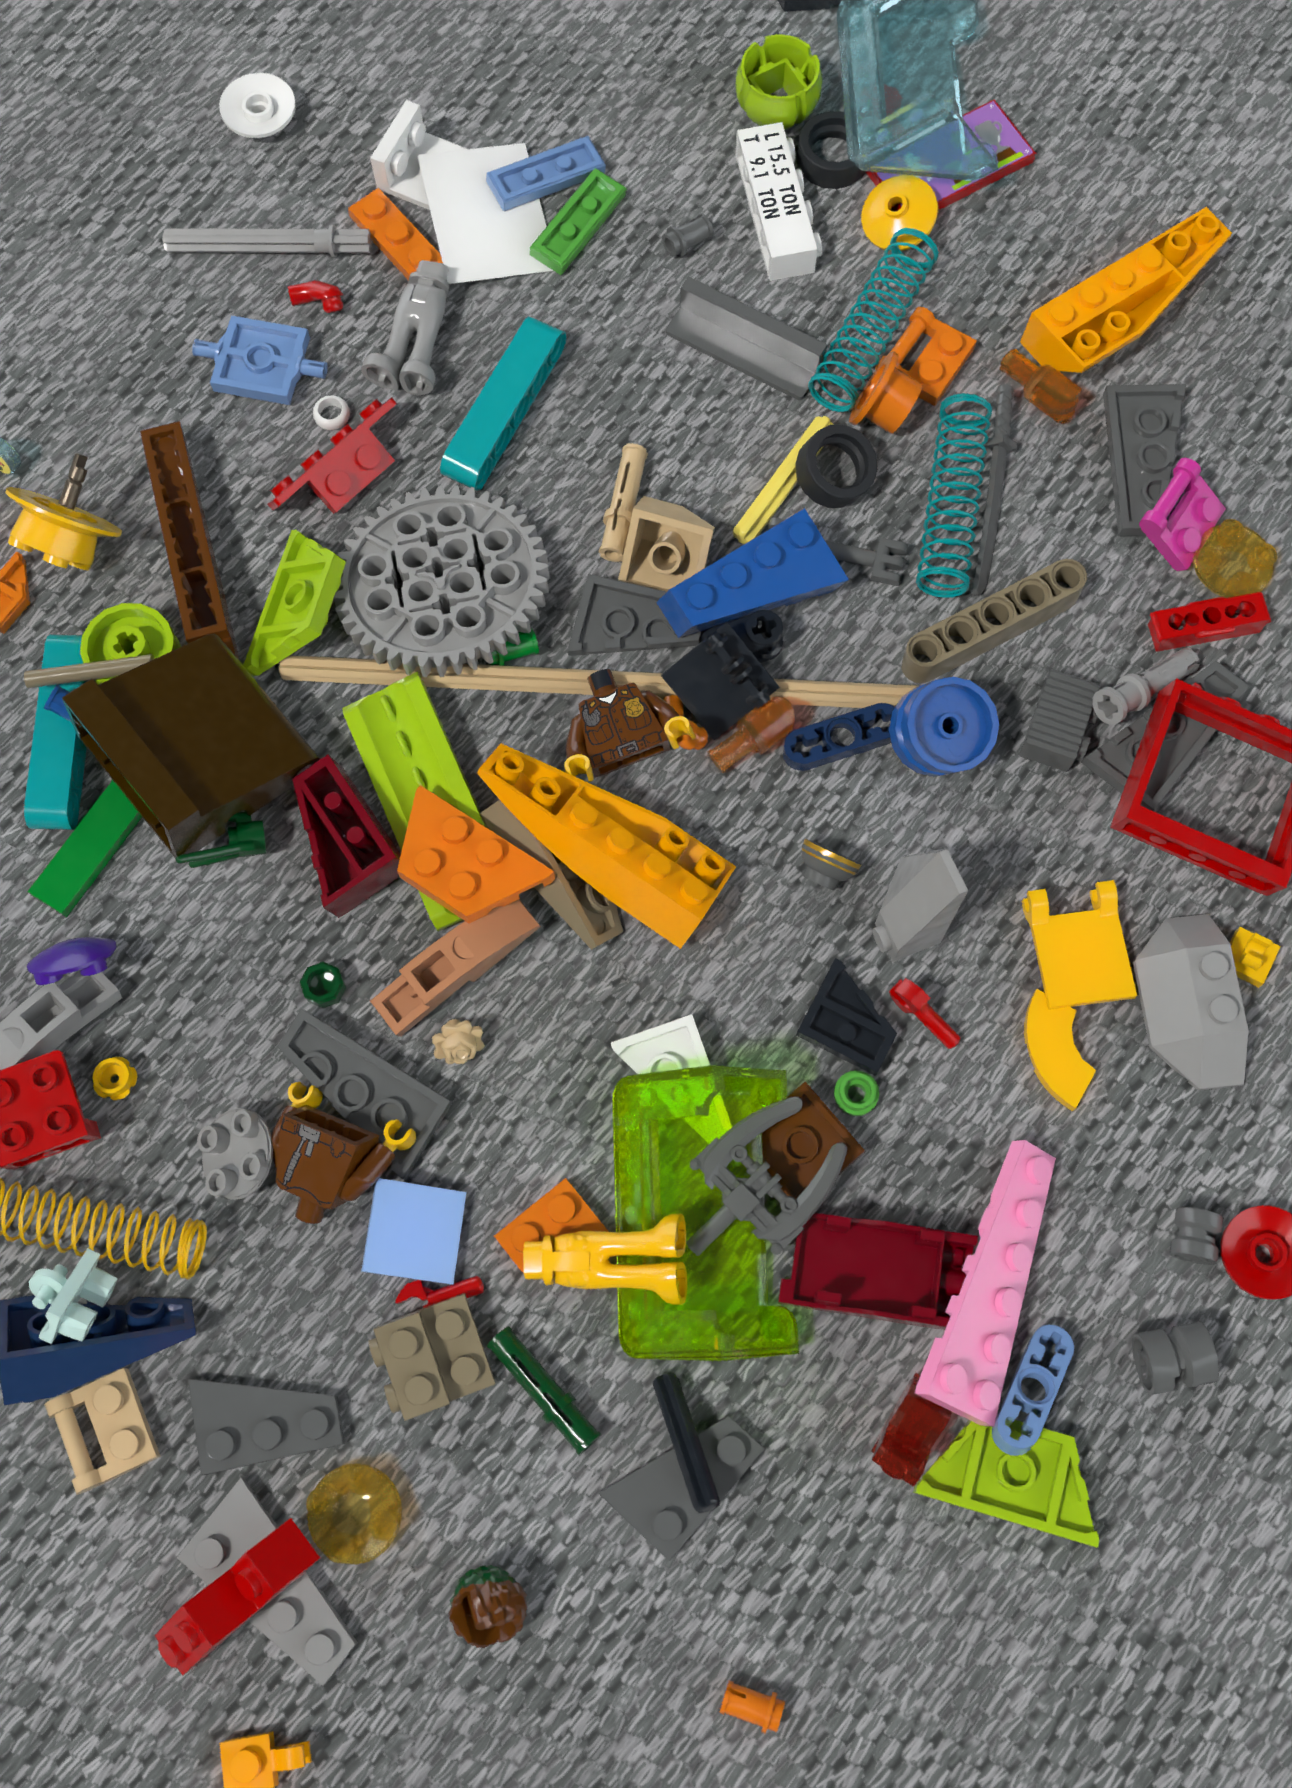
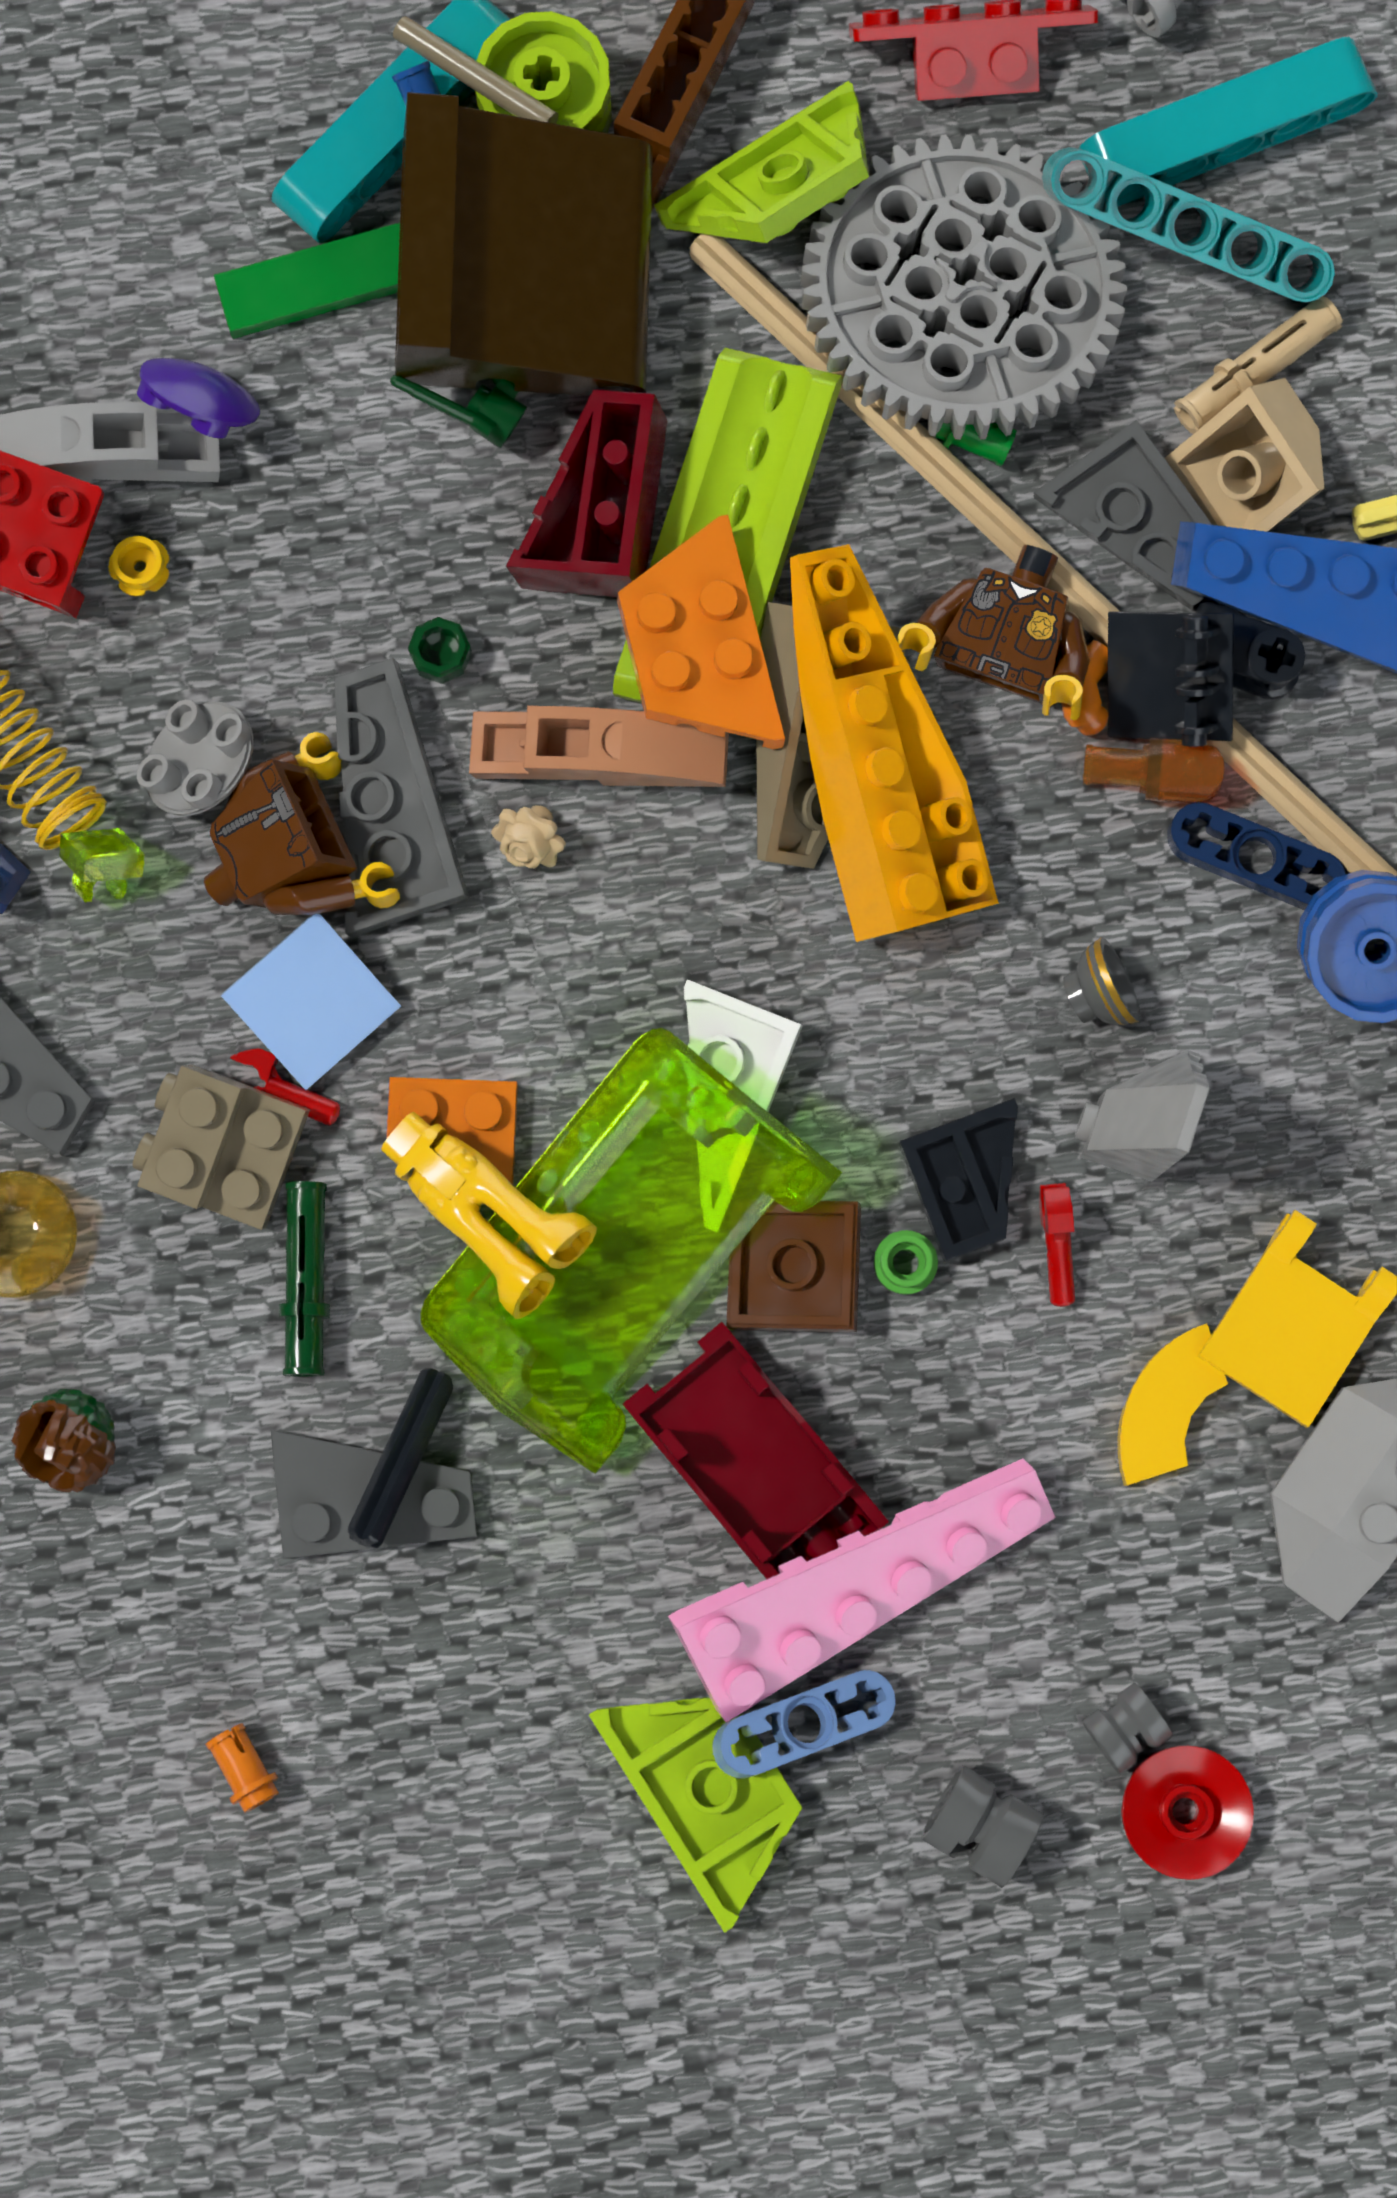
camera: 40 degrees right, 10 degrees up
(226, 1254) = (101, 857): none -> clear neon green tile
(546, 451) = (1217, 230): none -> teal beam
(745, 1196) = (682, 1266): dark grey bar -> none
(909, 1435) = (628, 1656): clear red brick -> none

